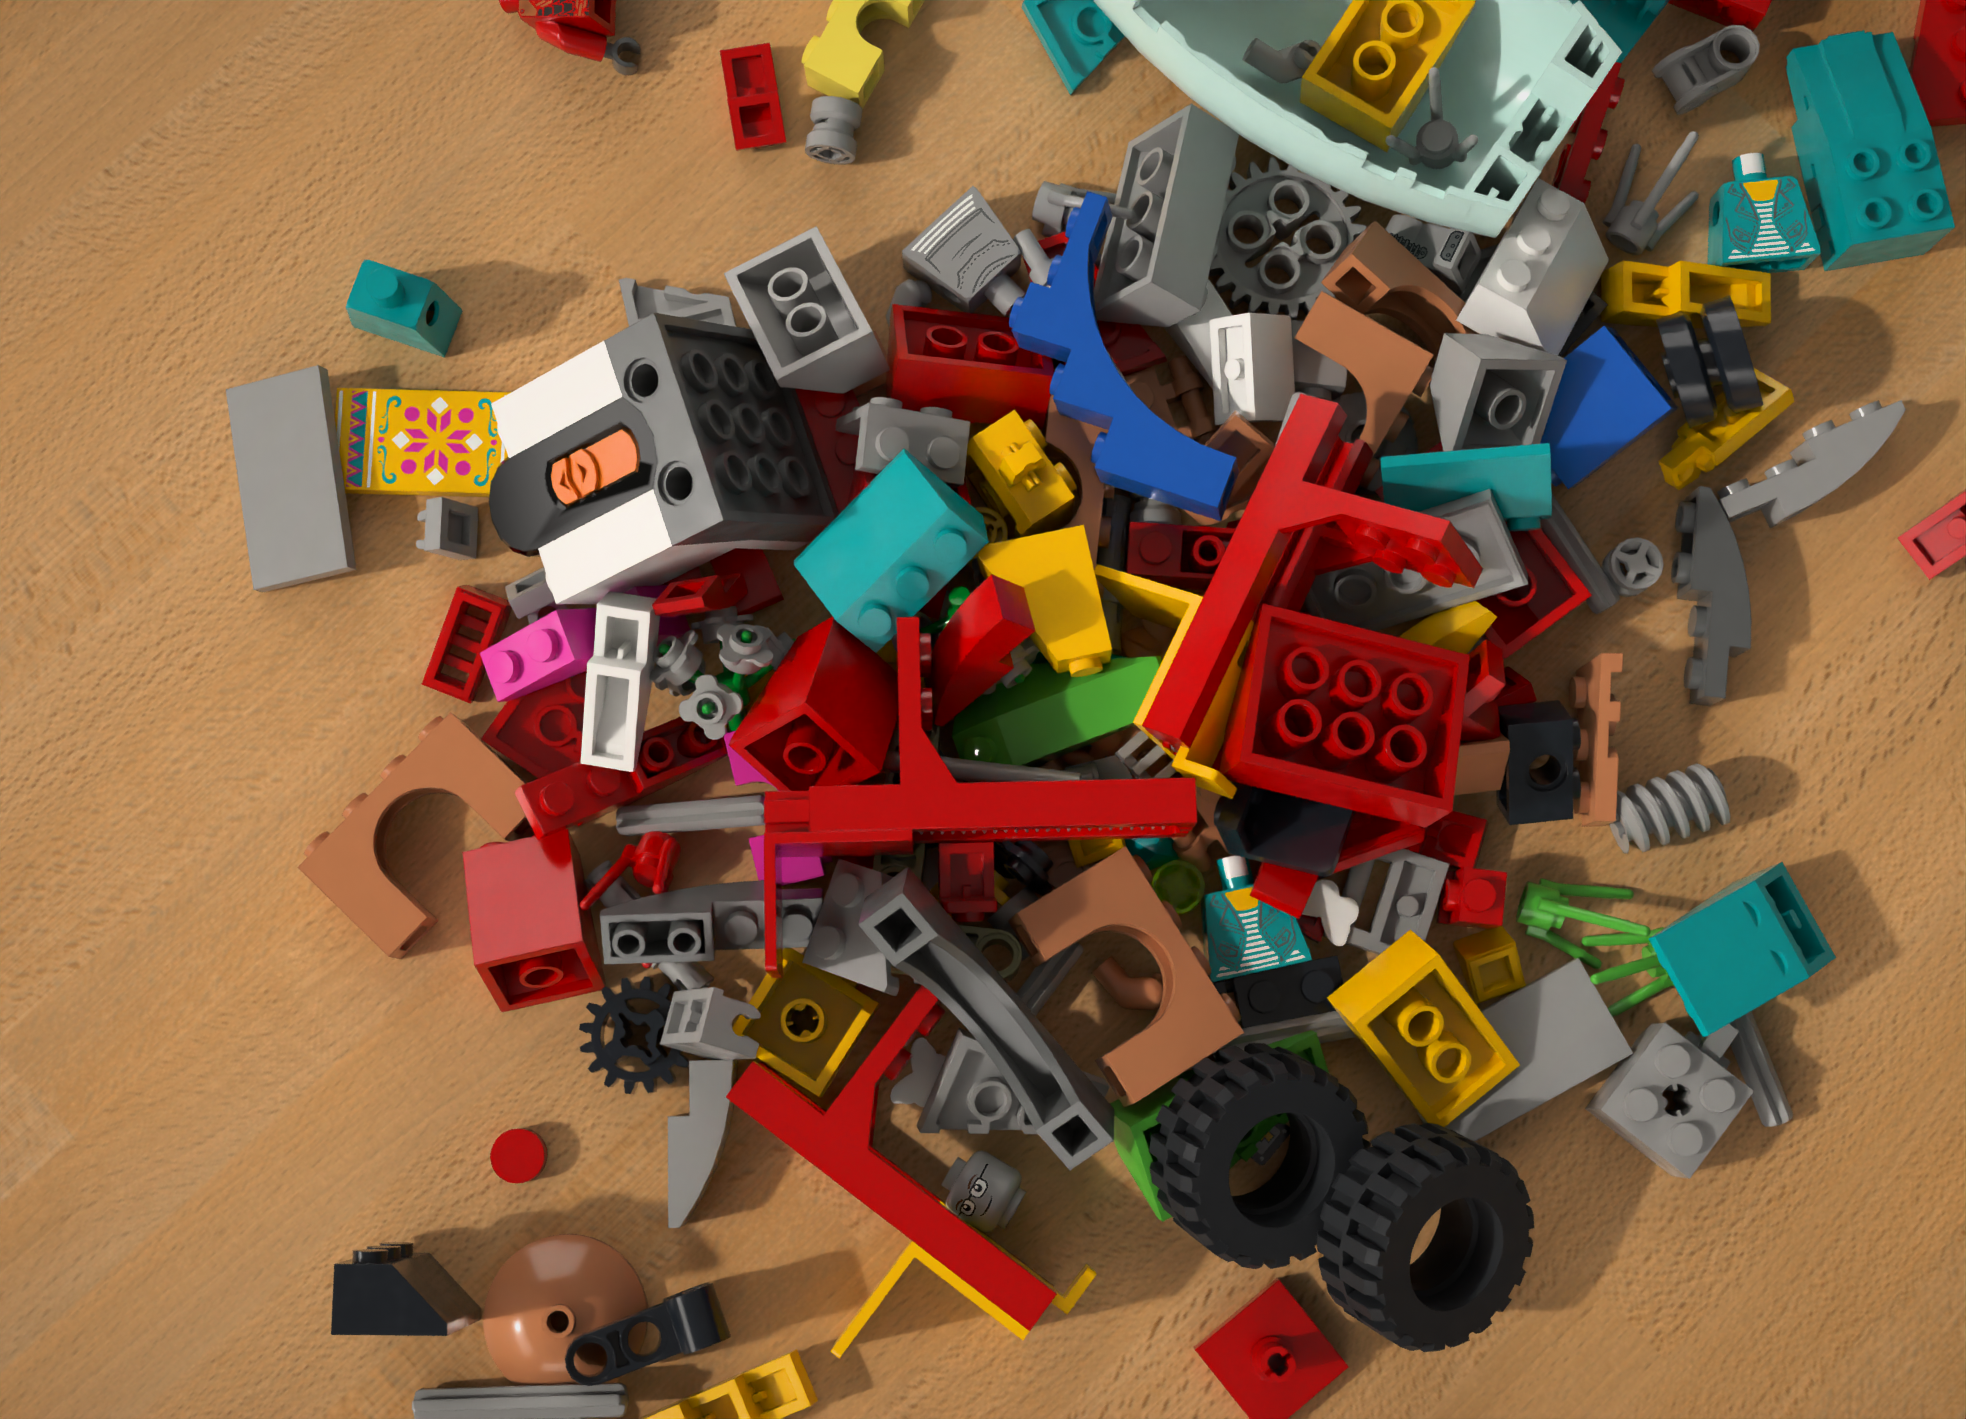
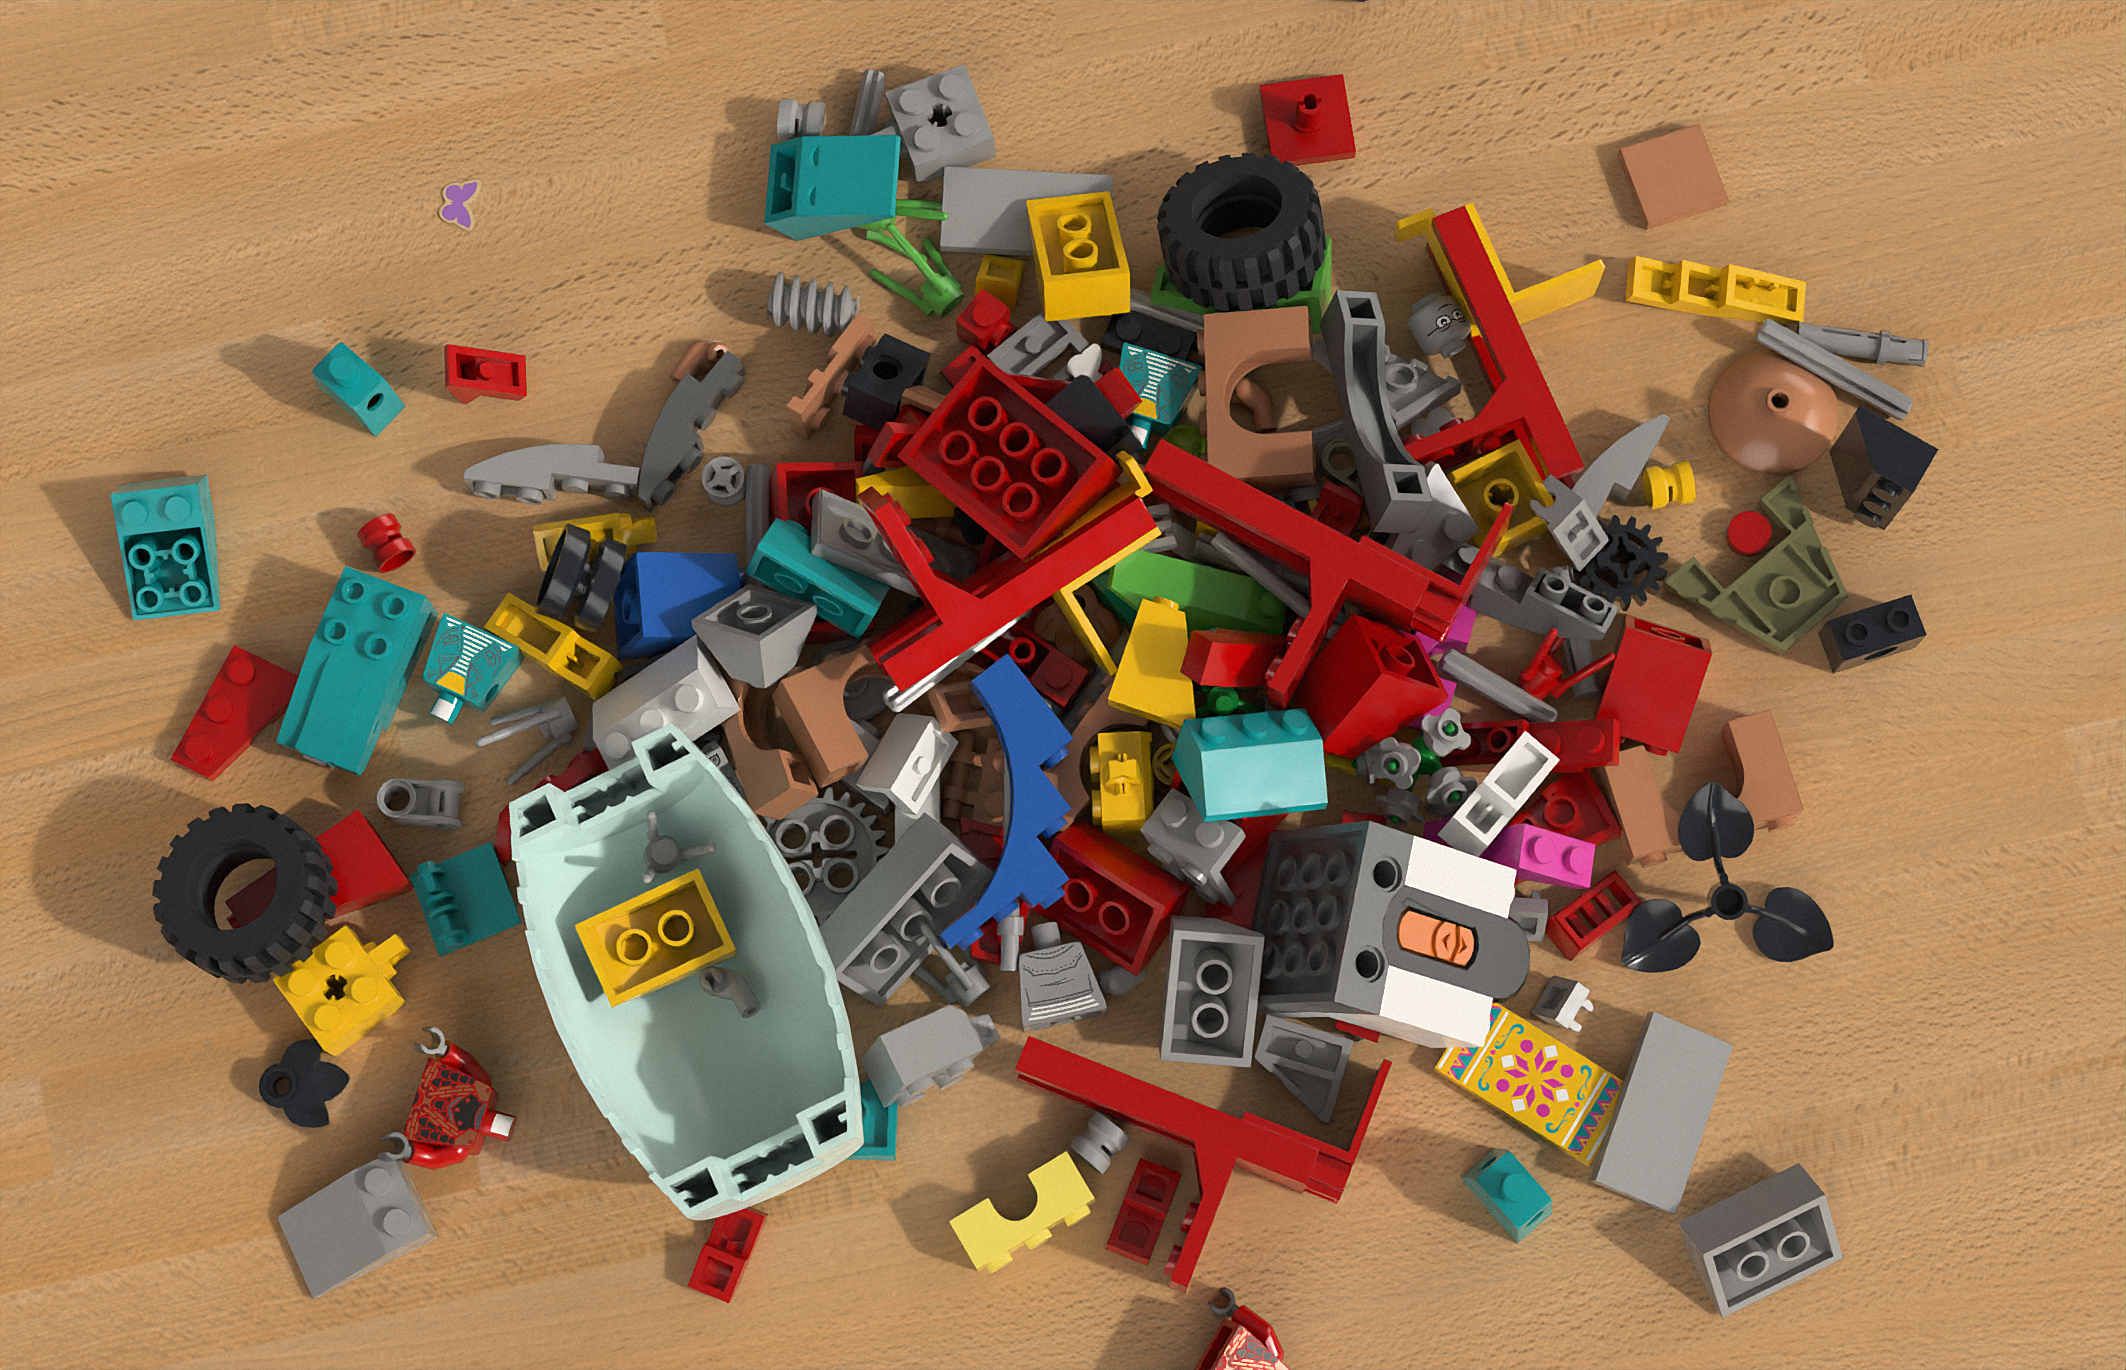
camera: 145 degrees left, 5 degrees down
(128, 411) = (1761, 1239): none -> light grey slope
(323, 1113) = (1872, 633): none -> black brick
(380, 789) = (1718, 826): none -> black plant
(446, 1110) = (1779, 594): none -> olive wing
(632, 1156) = (1668, 485): none -> yellow wheel
(684, 1323) = (1691, 352): black piece -> none
(700, 595) = (1413, 818): red slope -> none
(727, 188) = (1214, 1137): none -> red piece
(1047, 101) = (926, 1054): none -> light grey hinge
(1467, 1264) = (1165, 120): black tyre -> none
(1749, 686) = (697, 358): none -> nougat arm
(1822, 1014) = (800, 119): none -> light grey wheel
(1928, 299) = (386, 543): none -> red wheel

